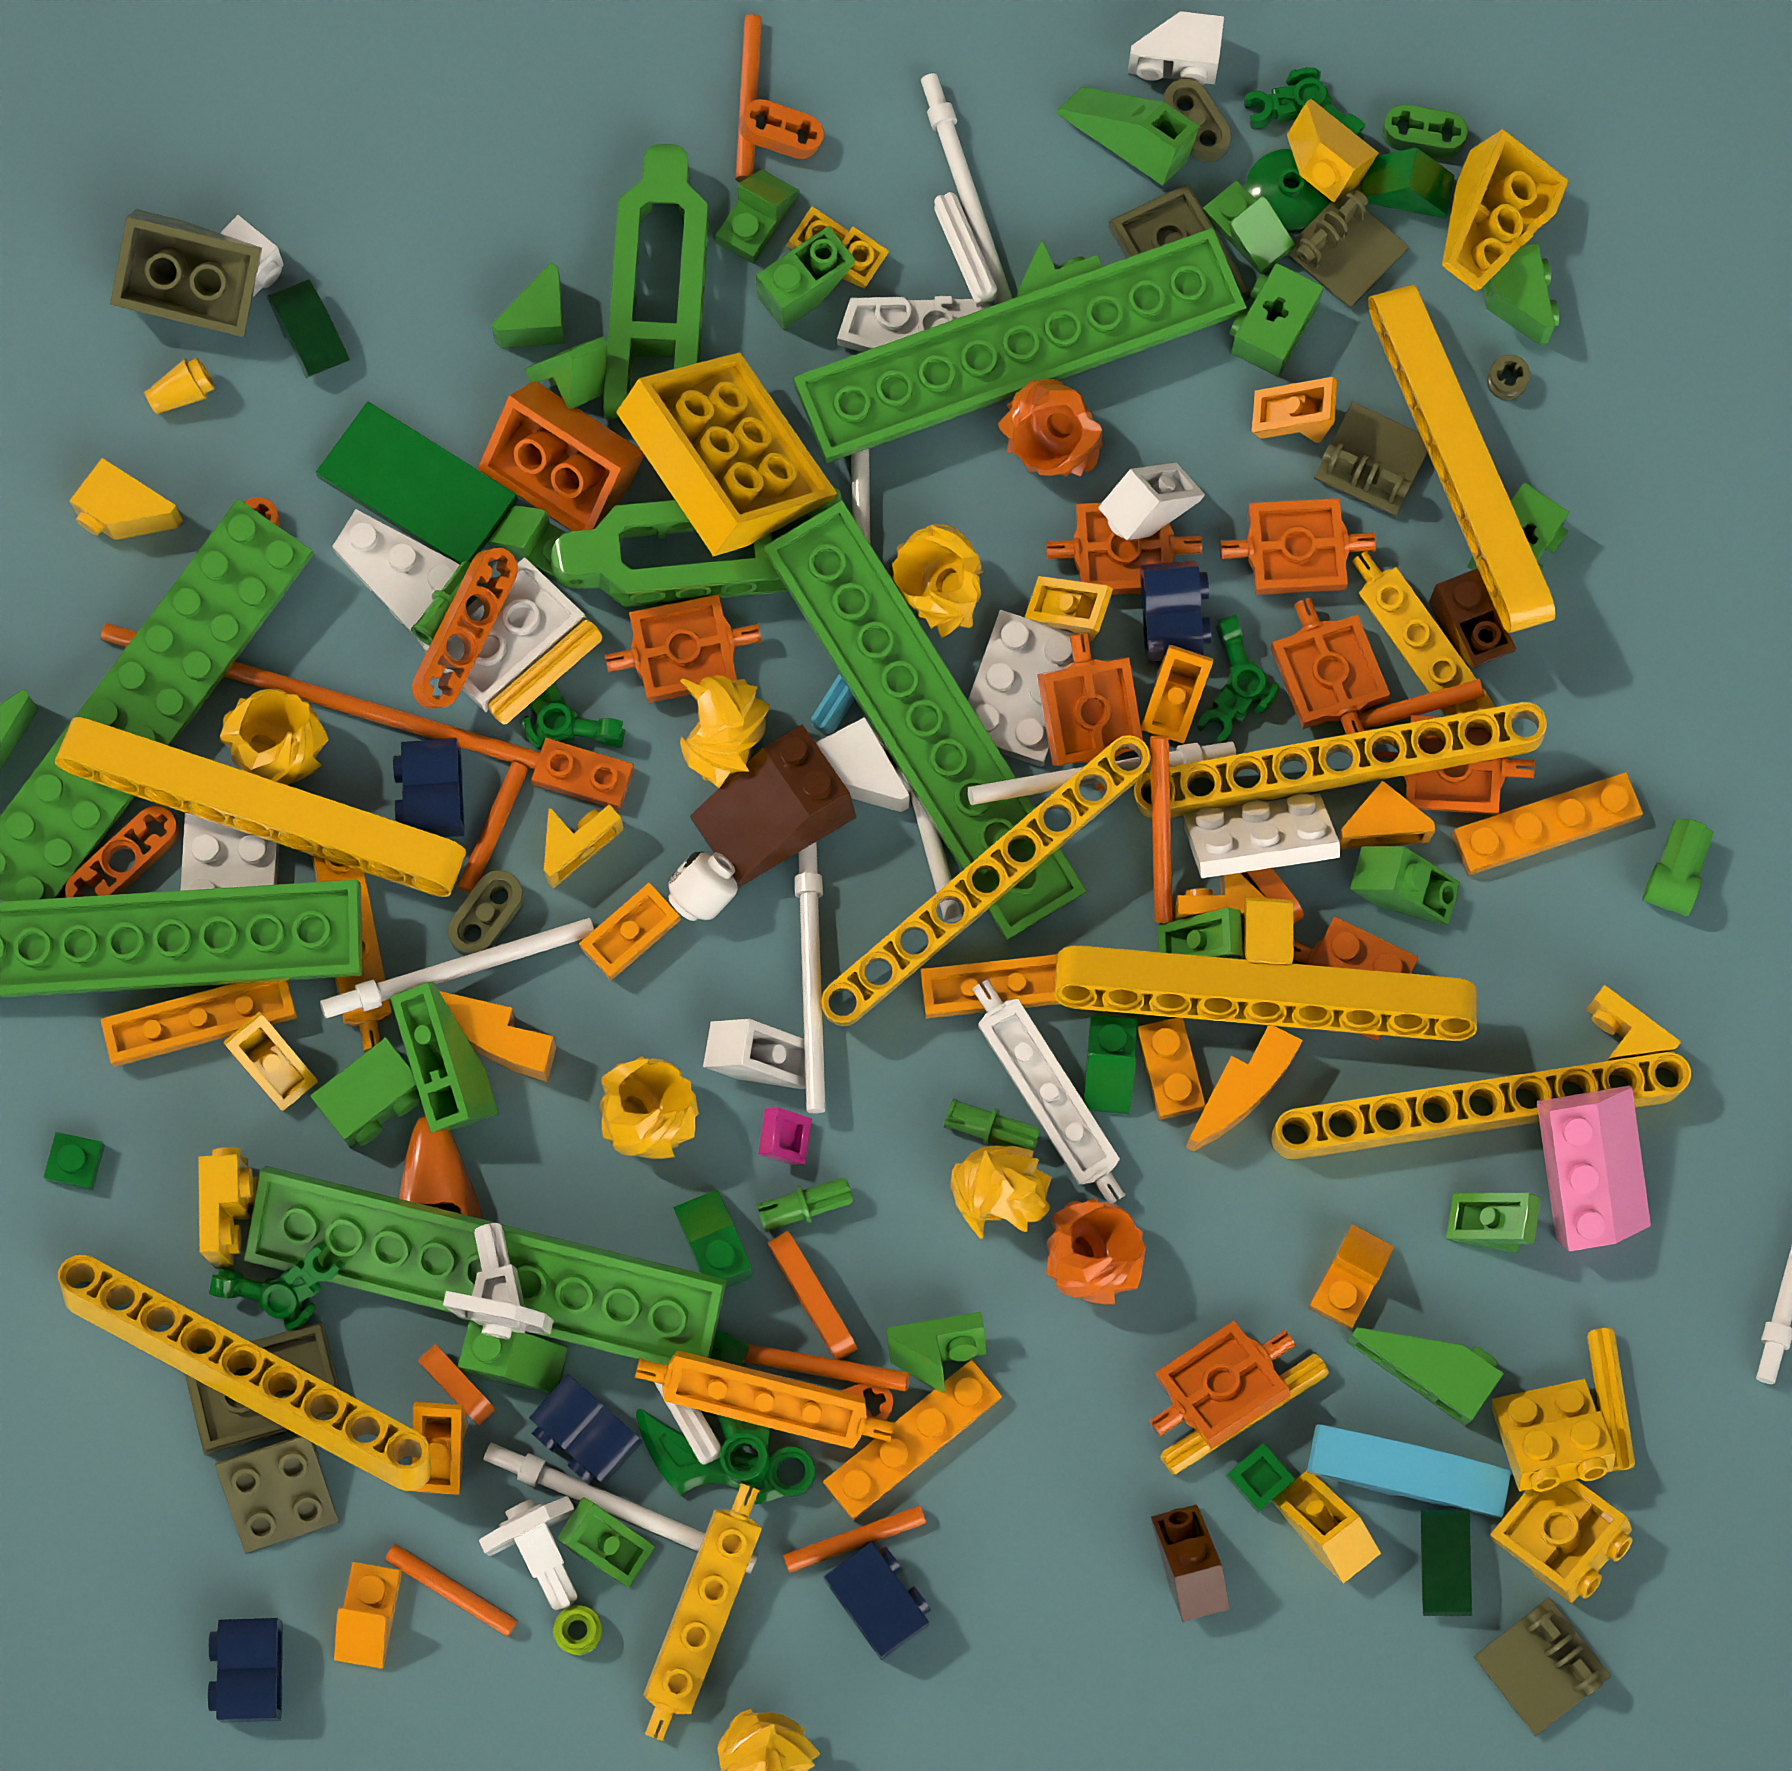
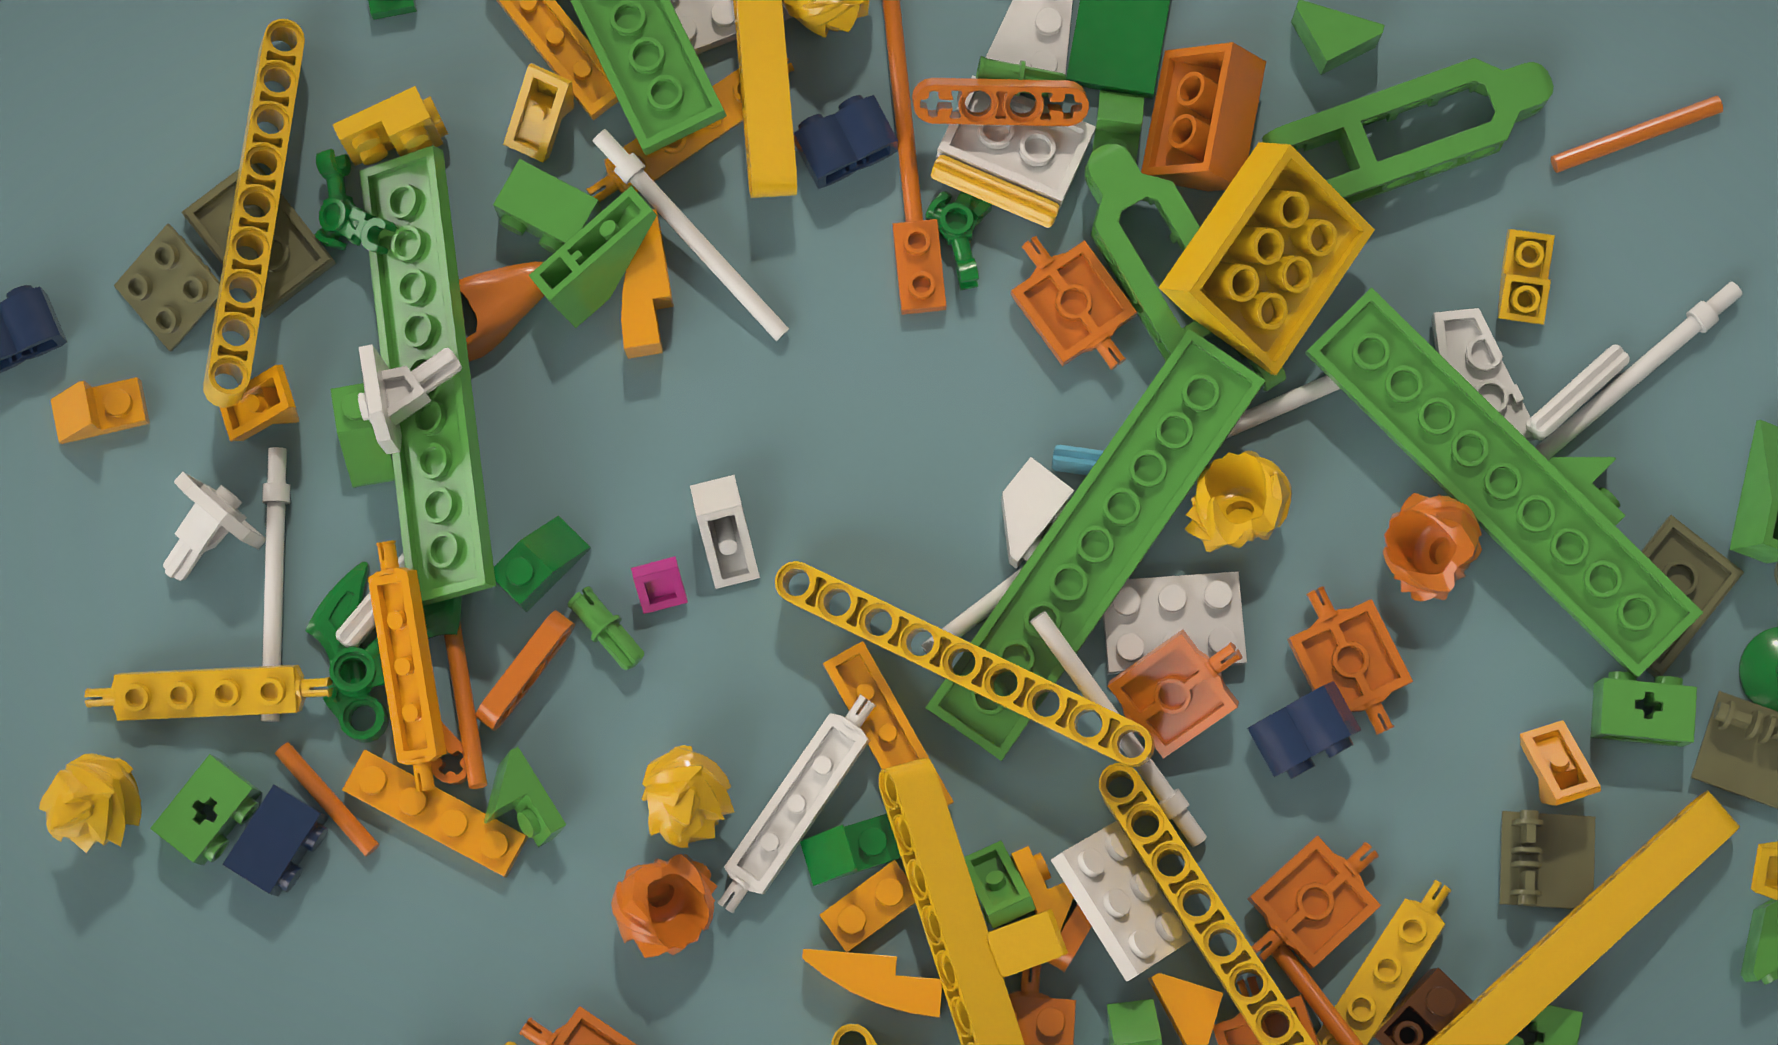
camera: 70 degrees right, 5 degrees up
(451, 1590) = (147, 471): orange bar -> none
(456, 1384) = (317, 405): orange beam -> none
(483, 914) = (754, 235): olive plate -> none
(493, 827) = (836, 210): orange bar -> none
(566, 1619) = (144, 583): lime plate -> none
(569, 851) = (839, 283): yellow slope -> none
(575, 371) = (1288, 92): bright green slope -> none
(584, 1430) = (325, 524): dark blue brick -> none
(605, 1542) = (234, 582): bright green slope -> none
(629, 931) = (790, 369): light orange plate -> none
(647, 1108) = (630, 452): yellow hair -> none
(702, 886) = (856, 414): white head -> none
(726, 729) = (1009, 370): yellow hair -> none
(756, 215) = (1524, 190): bright green slope -> none
(775, 807) = (956, 446): reddish brown slope -> none
(781, 129) = (1628, 174): orange beam -> none
(803, 277) = (1479, 257): bright green slope -> none
(809, 888) = (899, 510): white bar -> none
(820, 1686) = (185, 823): none -> bright green brick
(991, 1126) = (745, 765): bright green axle -> none
(1069, 605) = (1267, 631): yellow slope -> none
(1149, 500) = (1401, 664): white slope -> none
(1161, 829) = (1085, 804): orange bar -> none
(1176, 693) = (1224, 766): light orange slope -> none
(1244, 685) = (1264, 827): green piece -> none
(1250, 226) = (1726, 648): bright green slope -> none
(1297, 546) = (1425, 822): orange plate -> none
(1498, 387) = (1691, 942): olive bush -> none

